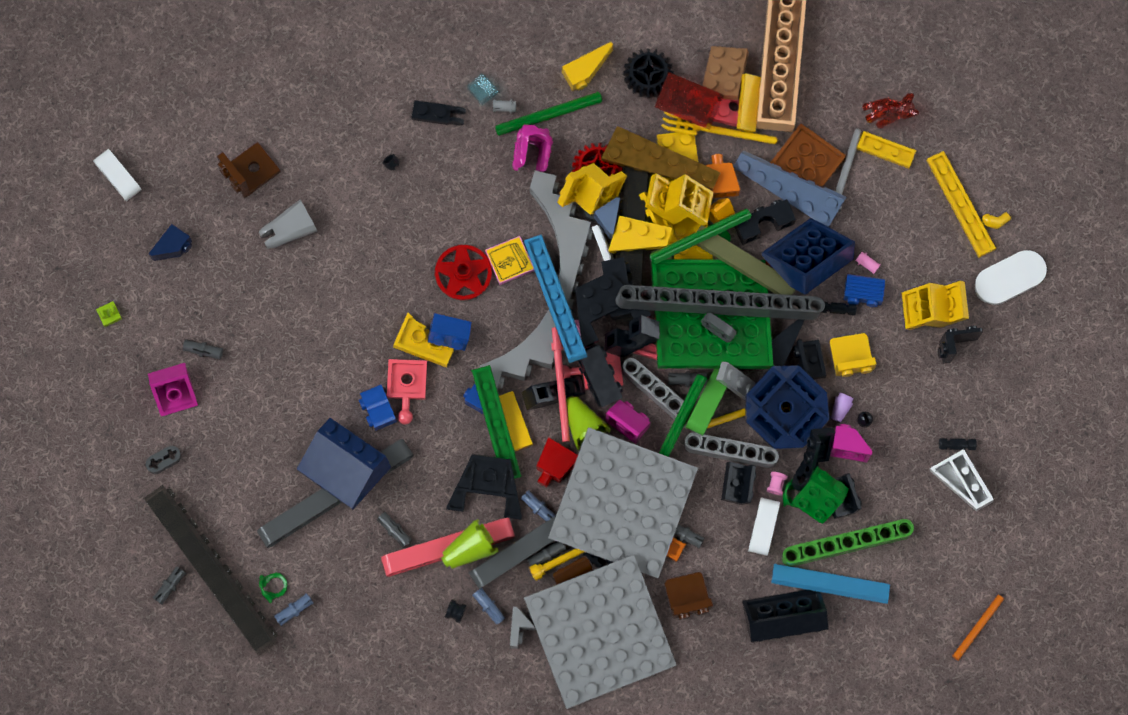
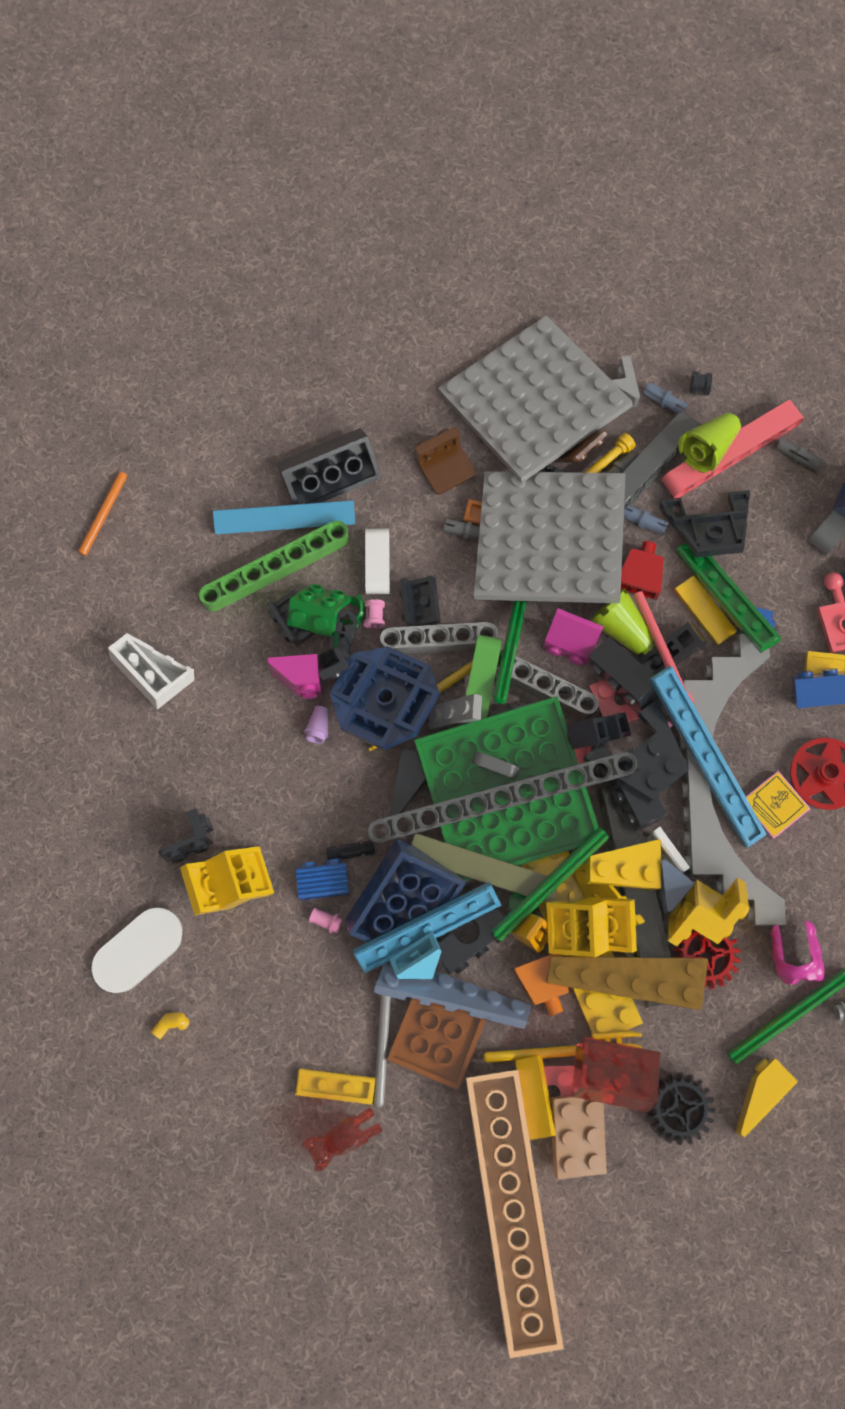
camera: 165 degrees right, 0 degrees up
(796, 233) = (437, 921): none -> dark azure tile
(810, 212) = (418, 959): none -> medium azure slope
(810, 358) = (370, 773): black bracket -> none
(852, 355) = (318, 792): yellow bracket -> none
(861, 420) = (280, 722): black hinge -> none
(957, 444) = (166, 717): black axle -> none
(961, 204) = (221, 1036): yellow tile -> none

